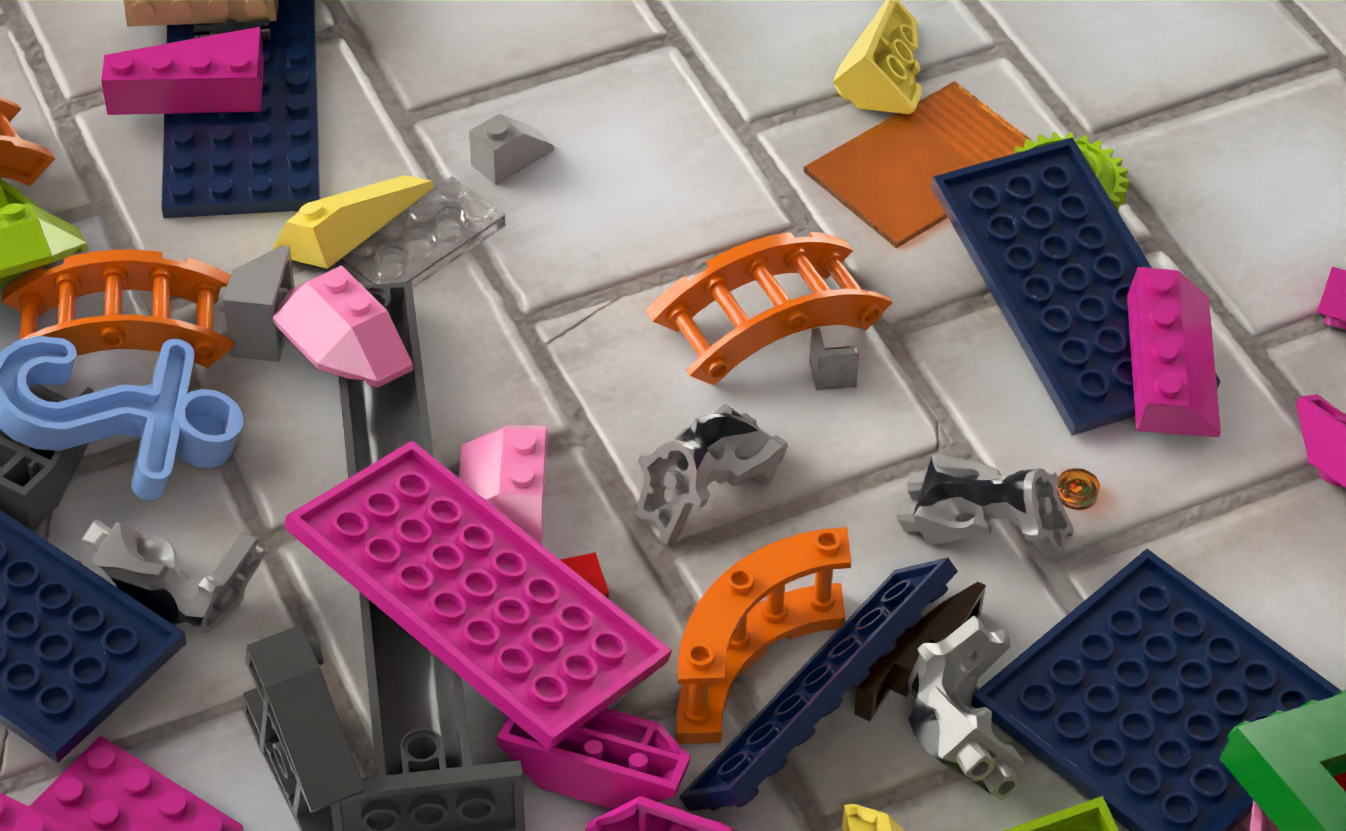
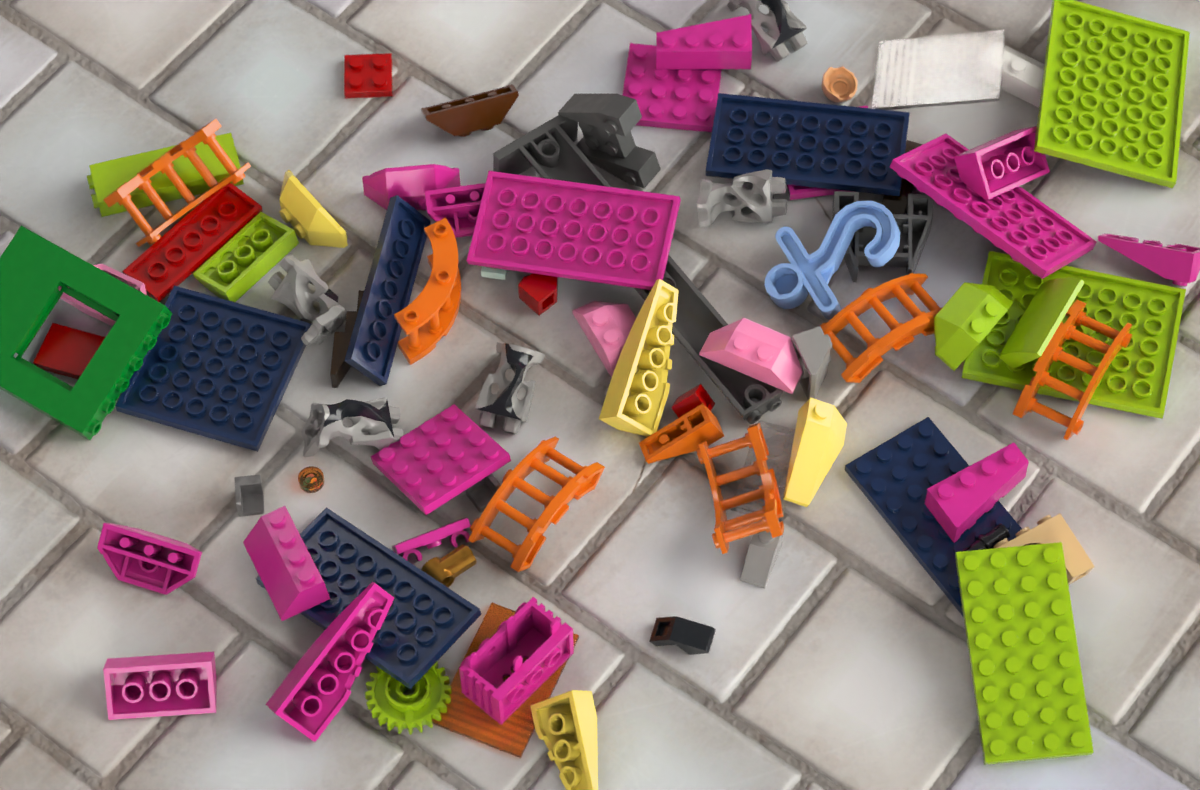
camera: 155 degrees right, 10 degrees up
(451, 180) = (767, 491): none -> orange fence
(463, 345) = (691, 400): none -> red panel
(508, 309) = (682, 435): none -> orange slope
(514, 388) = (641, 373): none -> light yellow wedge
(679, 100) = (686, 634): none -> black slope
(872, 406) = (440, 459): none -> dark pink plate
(915, 132) = (528, 635): none -> dark pink piece
(940, 333) = (433, 538): none -> dark pink plate
(946, 291) = (450, 565): none -> pearl gold piece
(1176, 208) = (327, 670): none -> dark pink wedge
(1184, 500) = (249, 495): none -> flat silver panel

